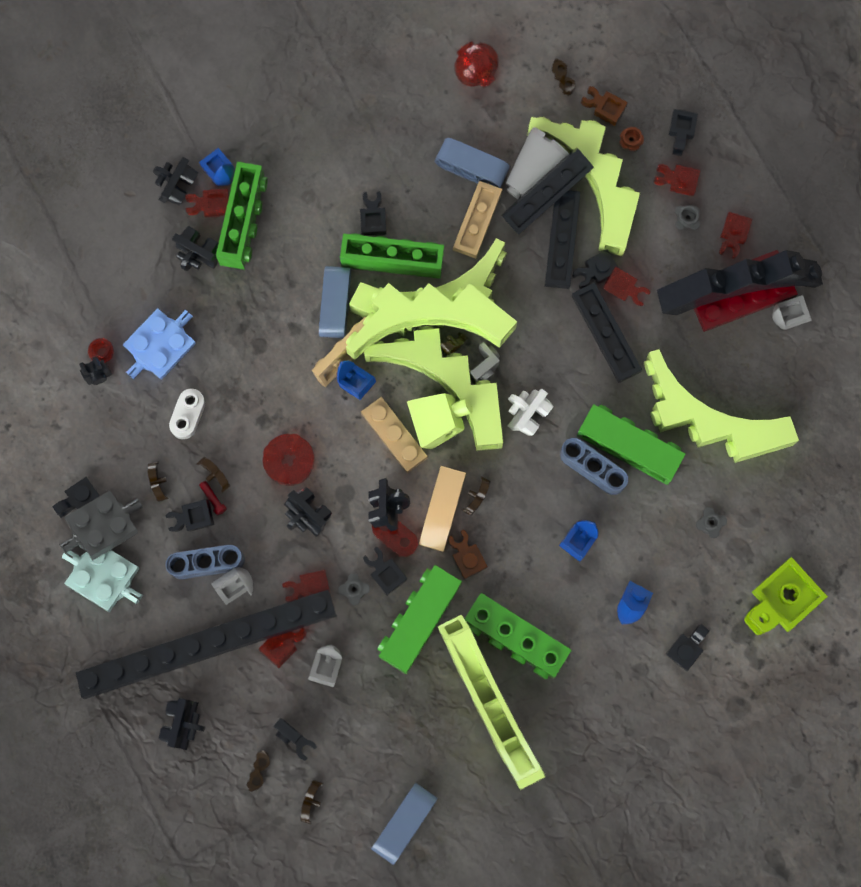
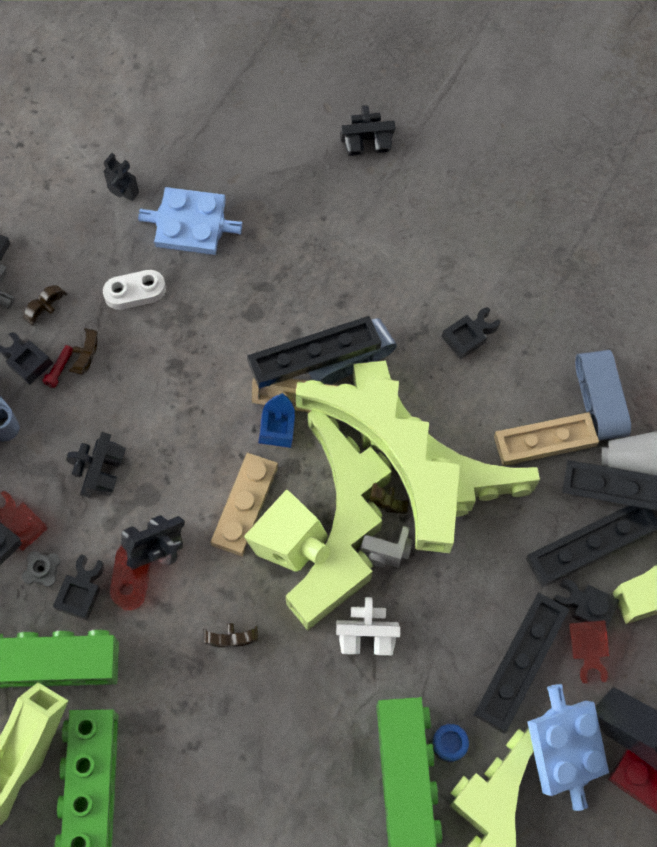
camera: 55 degrees right, 10 degrees down
(101, 343) = (148, 167): clear red plate -> none
(187, 243) = (314, 204): black hips -> none
(212, 203) = (368, 179): clear red plate -> none
(218, 168) = (410, 163): blue plate -> none
(240, 215) = (374, 208): bright green brick -> none
(302, 464) = (151, 431): clear red plate -> none
(326, 323) = (314, 352): none -> black plate
(392, 255) = (439, 376): bright green brick -> none
(442, 508) = (191, 606): tan slope -> none
(468, 558) = (153, 673): reddish brown plate -> none
(580, 539) = (252, 789): blue plate -> none
(598, 478) = (351, 730): sand blue beam -> none
(626, 406) = (450, 743): none -> blue tile
(674, 340) = (568, 747): none -> light blue plate

